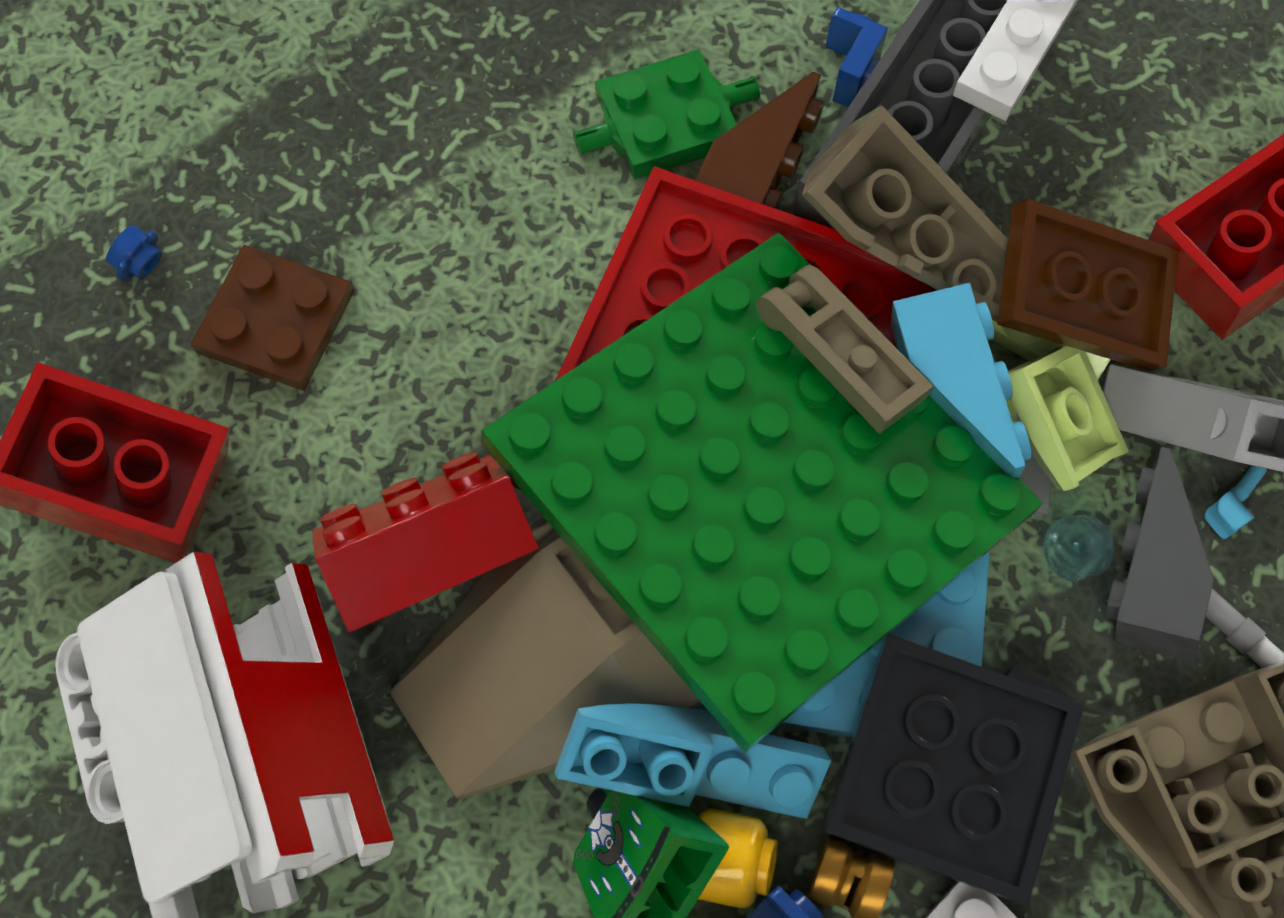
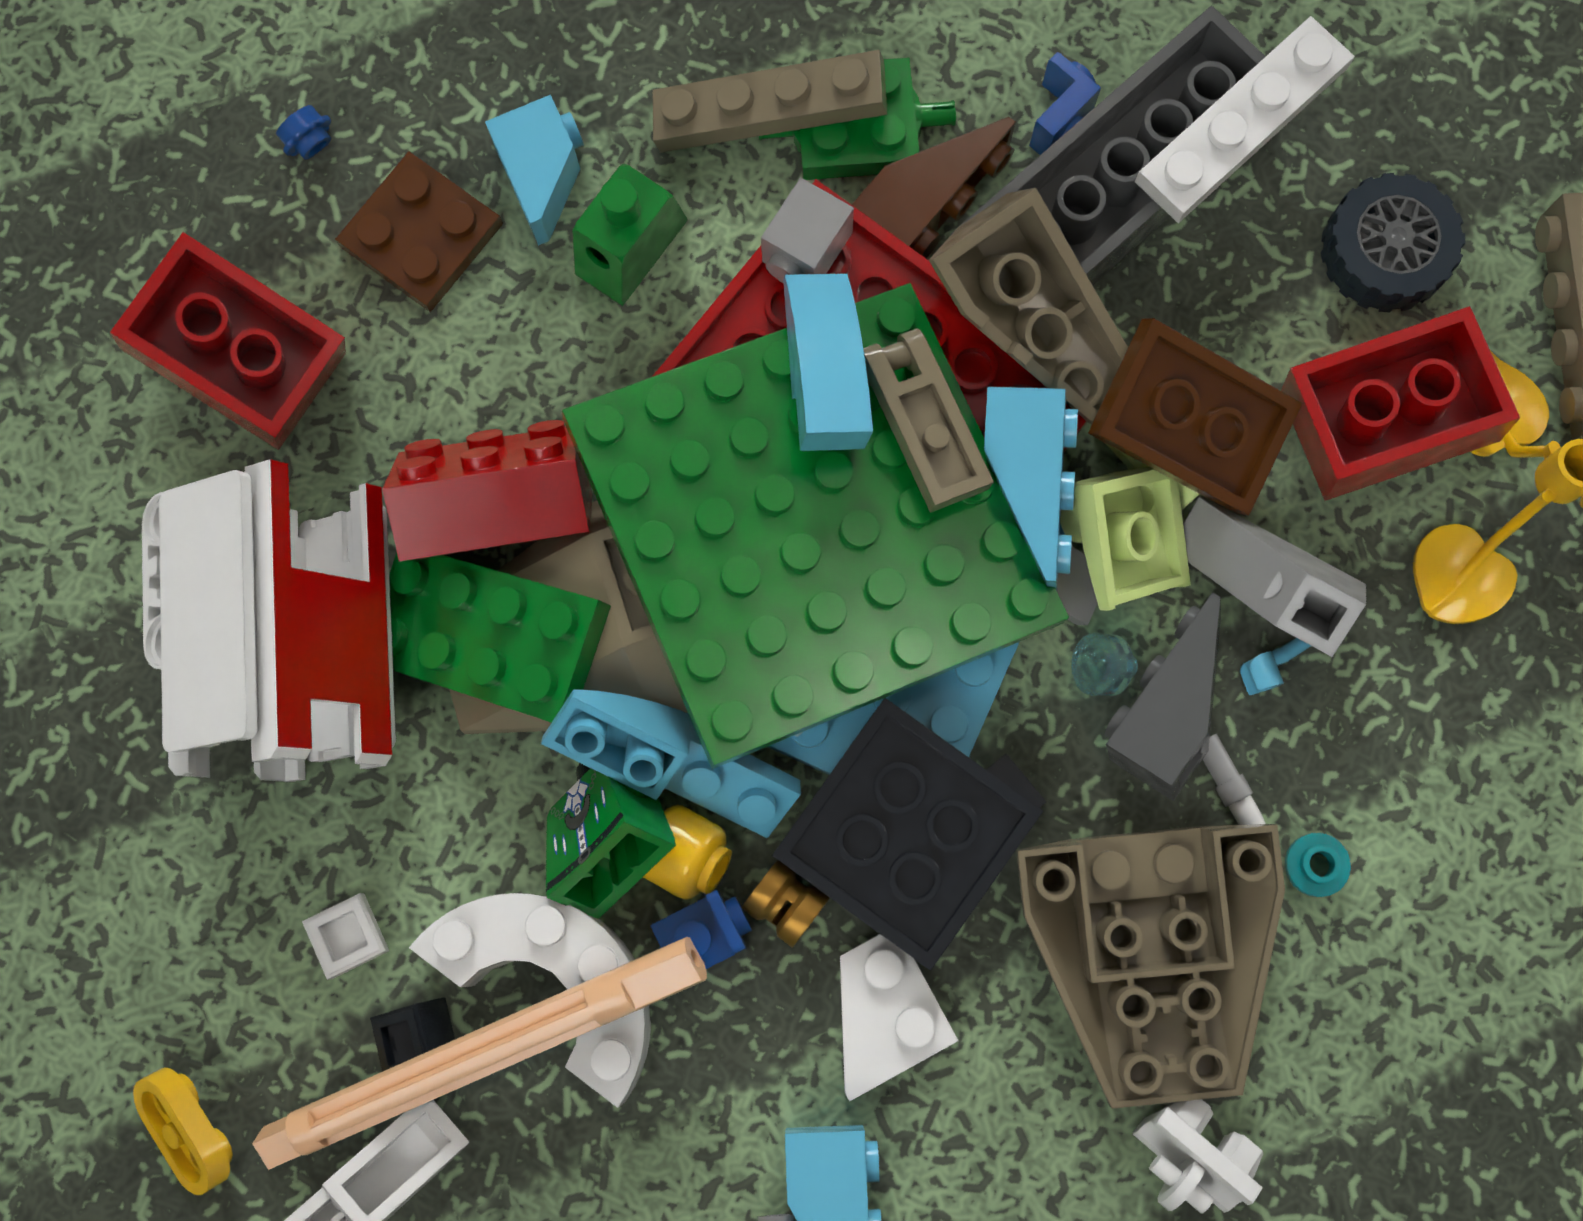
camera: 20 degrees right, 10 degrees up
(374, 221) = (538, 159): none -> medium azure slope
(465, 683) = (492, 633): none -> green plate
(486, 251) = (630, 227): none -> green torso
(583, 114) = (770, 101): none -> dark tan plate
(666, 213) = (806, 232): none -> light grey brick
(735, 318) = (827, 363): none -> medium azure slope
(1187, 75) = (1392, 242): none -> black wheel

